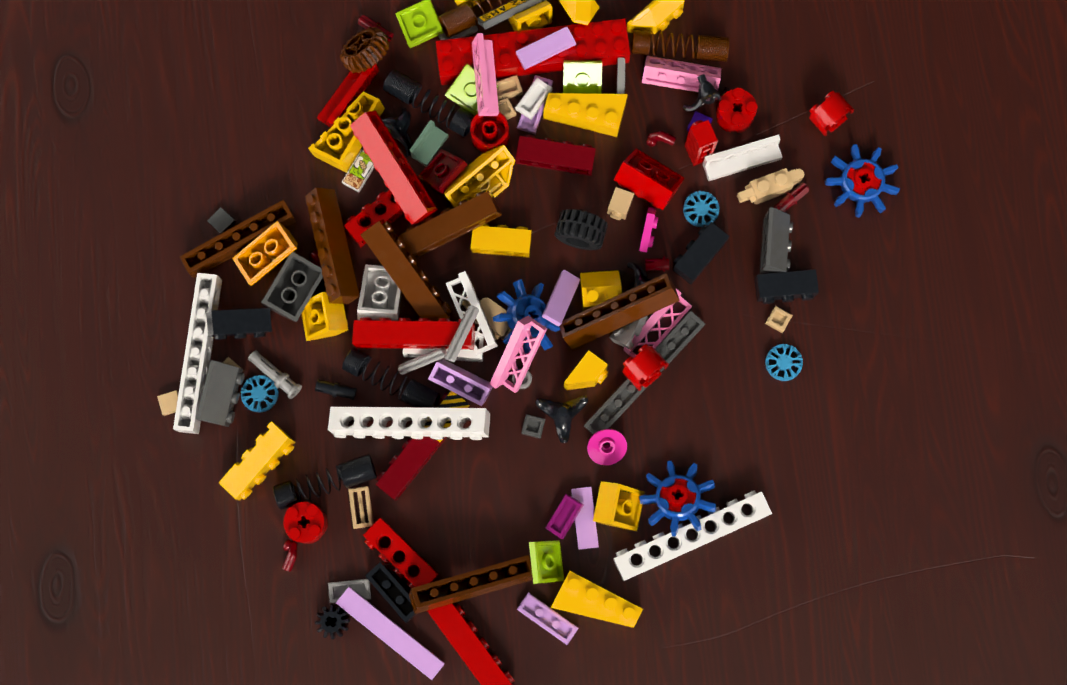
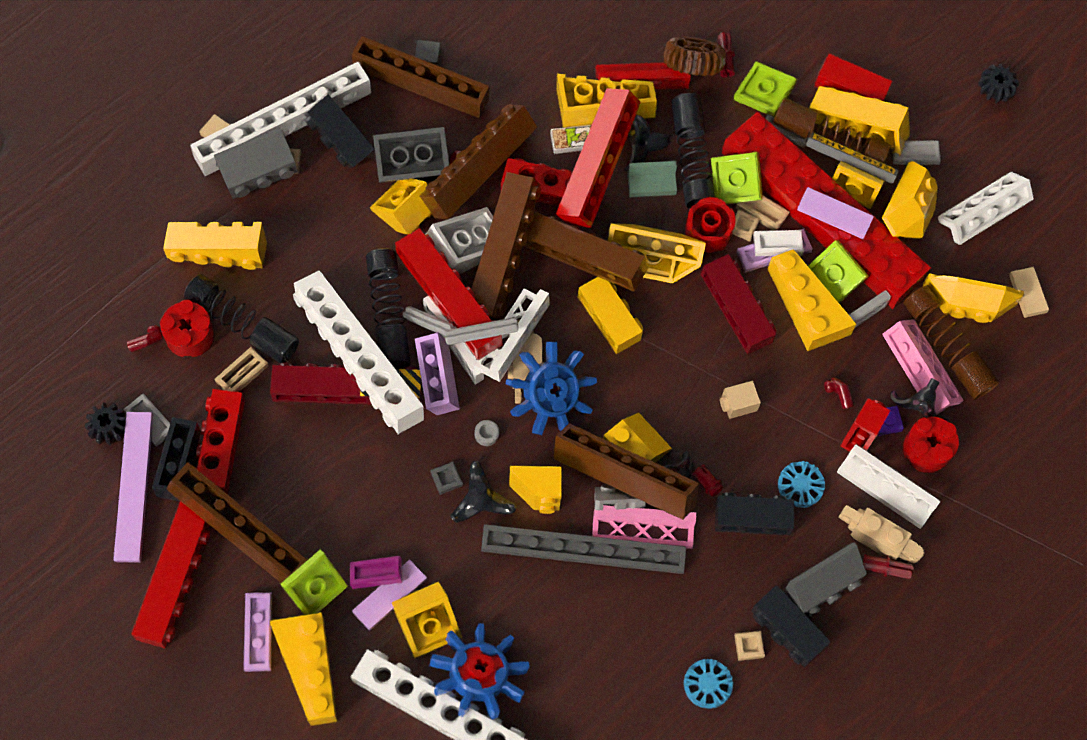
camera: 45 degrees right, 10 degrees down
(259, 393) = (285, 202): dark azure wheel -> none
(265, 252) = (425, 106): light orange slope -> none
(281, 379) = (313, 211): light grey pin -> none
(335, 389) = (341, 266): black pin -> none
(442, 171) = (635, 209): dark red tile -> none
(485, 76) = (758, 177): bright pink fence -> none
(512, 351) = (505, 397): bright pink fence -> none
(561, 298) = (596, 408): lavender tile -> none
(581, 229) = (680, 376): black tyre -> none
(610, 453) = (469, 566): dark pink dish -> none
(644, 367) = (587, 536): red brick -> none
(648, 179) = (788, 409): red slope -> none
(650, 222) = (737, 442): dark pink wing -> none
(830, 113) = (1008, 539): red brick -> none
(873, 178) = (962, 639): blue gear -> none

